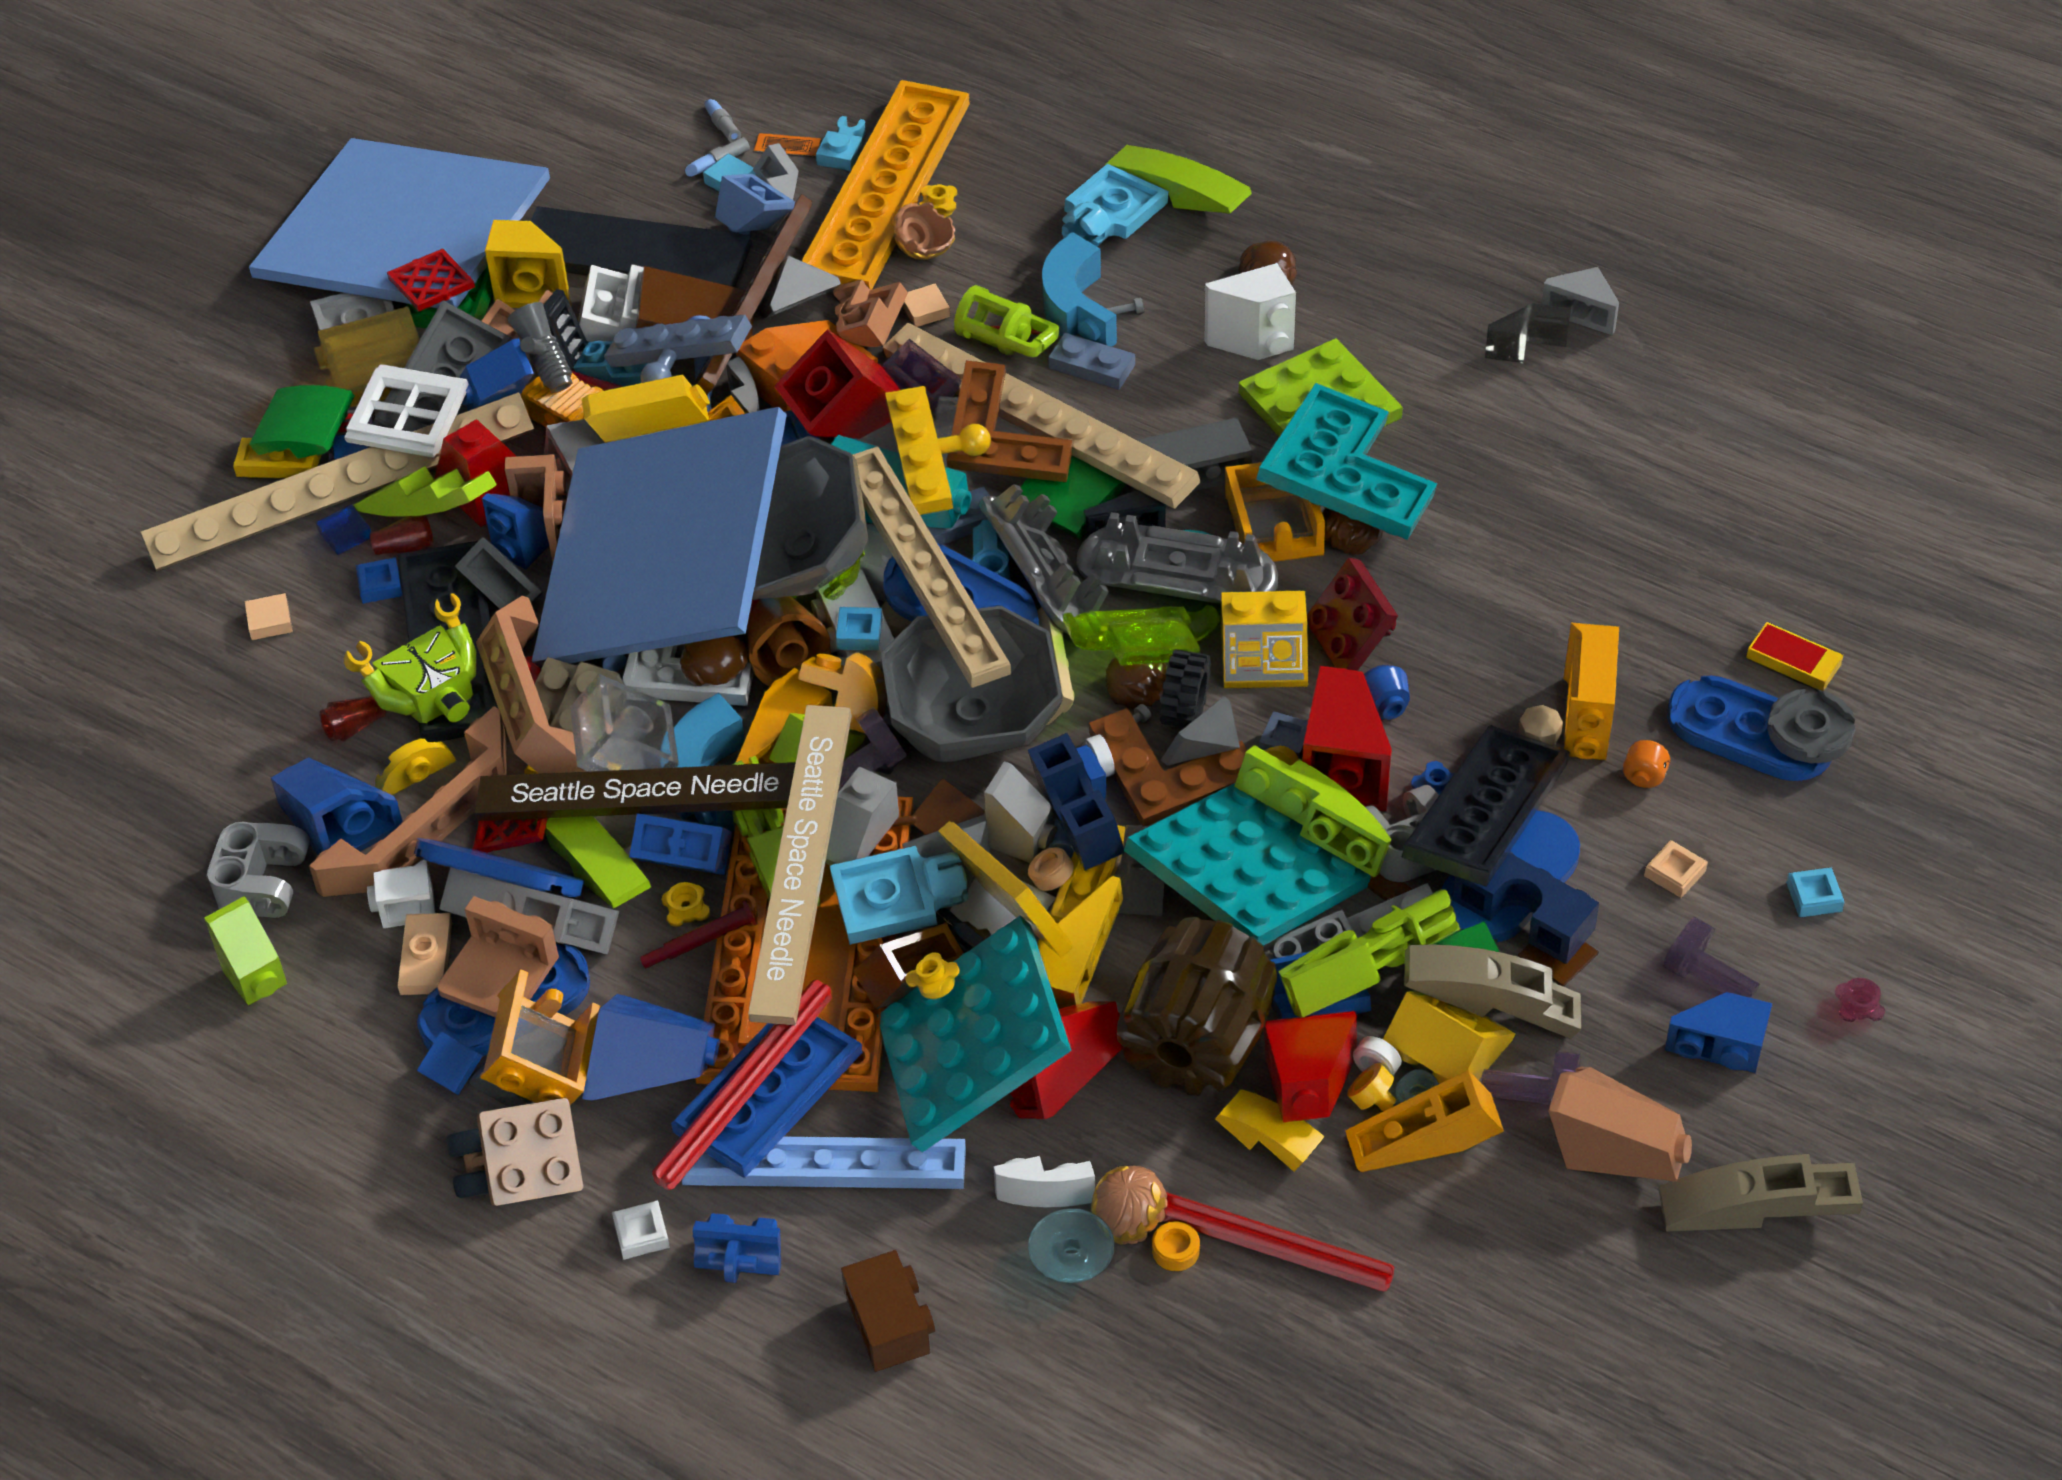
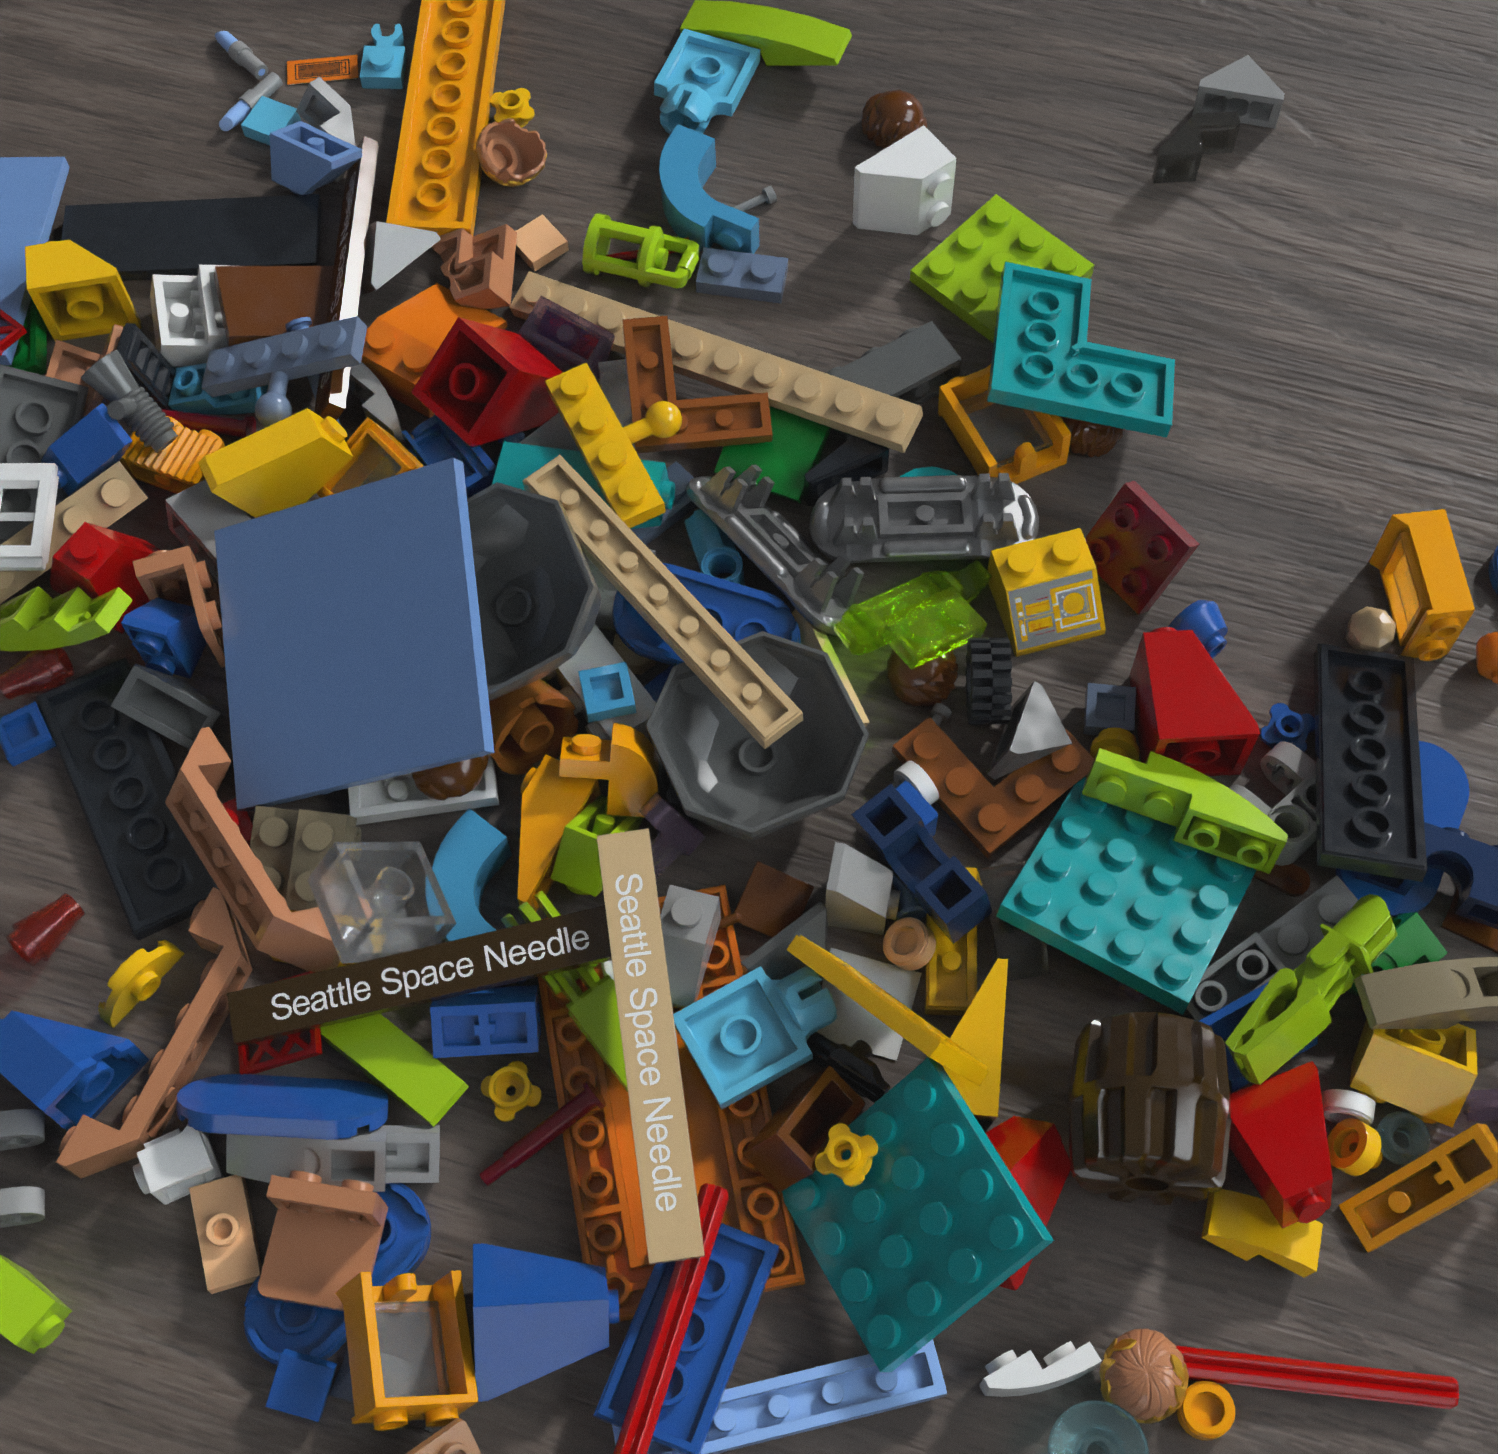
camera: 15 degrees left, 15 degrees up
(424, 675) = (118, 862): lime torso -> none

